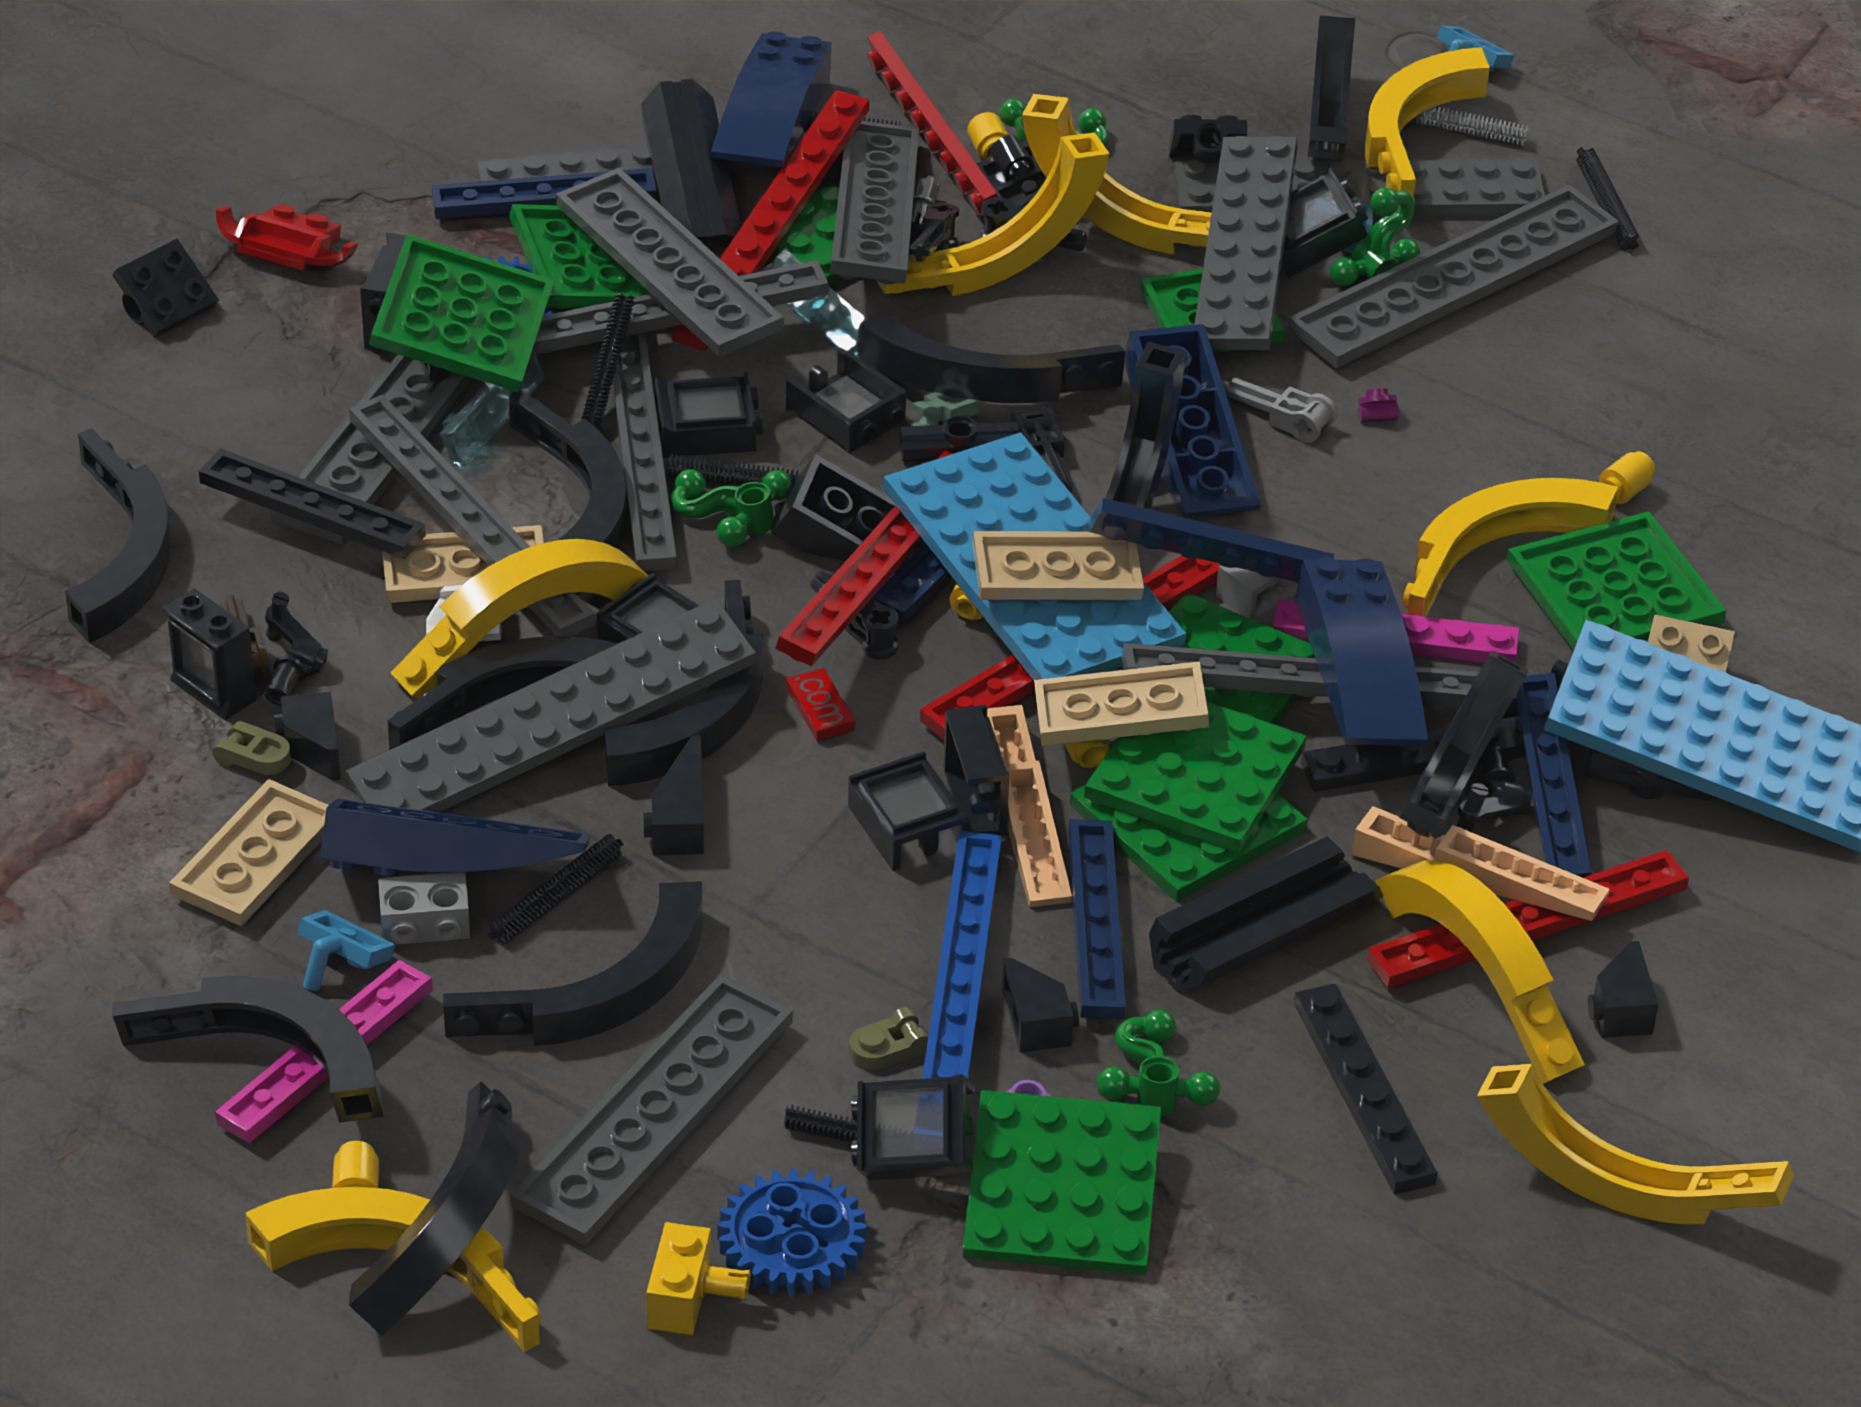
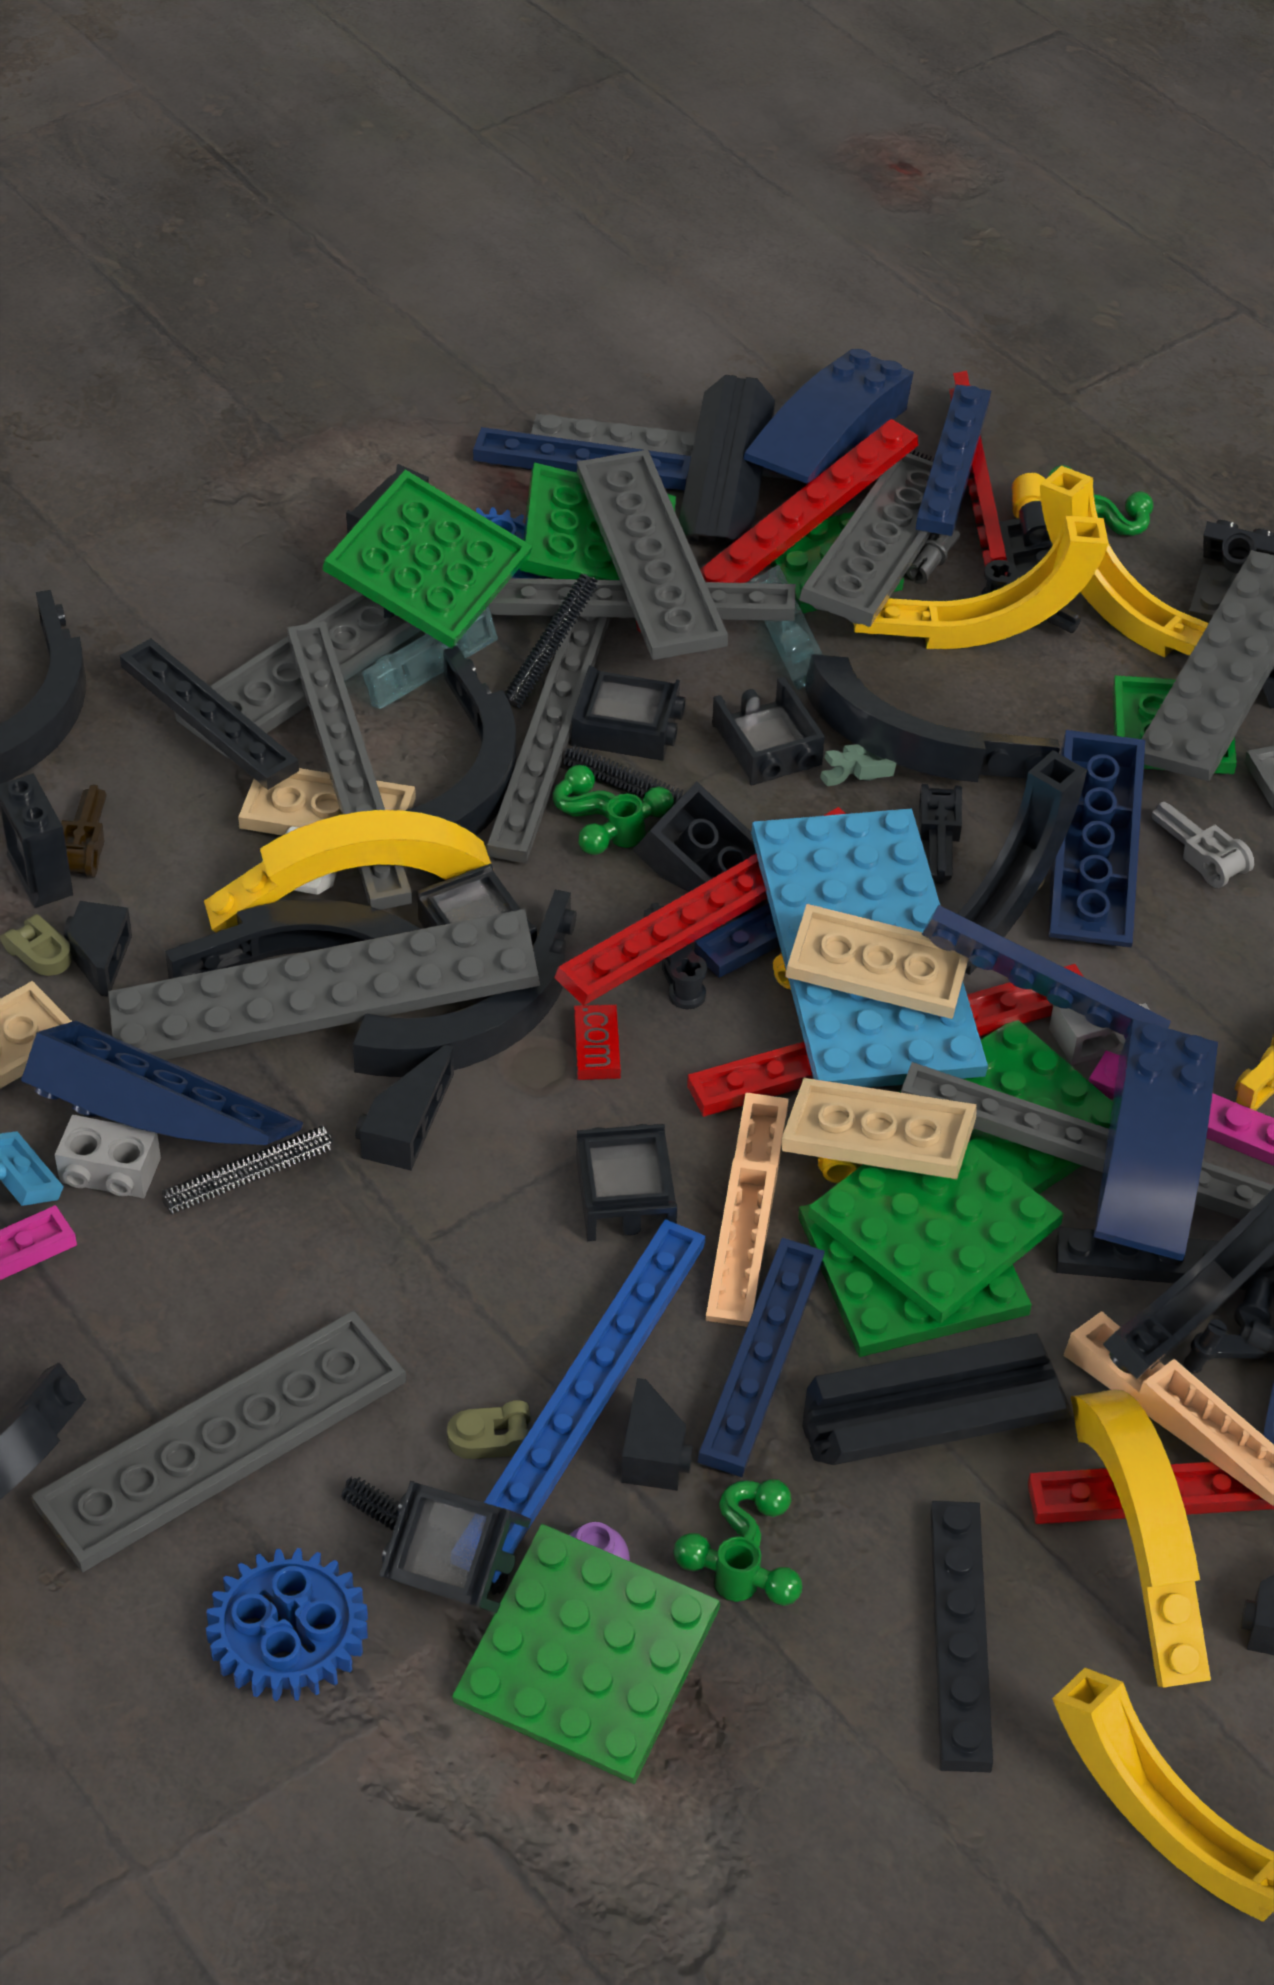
camera: 20 degrees right, 5 degrees up
(164, 288) = (191, 470): black plate -> none
(285, 237) = (326, 446): red plate -> none
(304, 656) = (132, 863): black pin -> none
(601, 1000) = (242, 1301): black arch -> none
(684, 1277) = (151, 1643): yellow brick -> none
(909, 115) = (953, 460): none -> dark blue plate
(937, 231) = (932, 581): black connector -> none
(954, 436) = (853, 795): black piece -> none
(976, 769) = (705, 1160): black window -> none

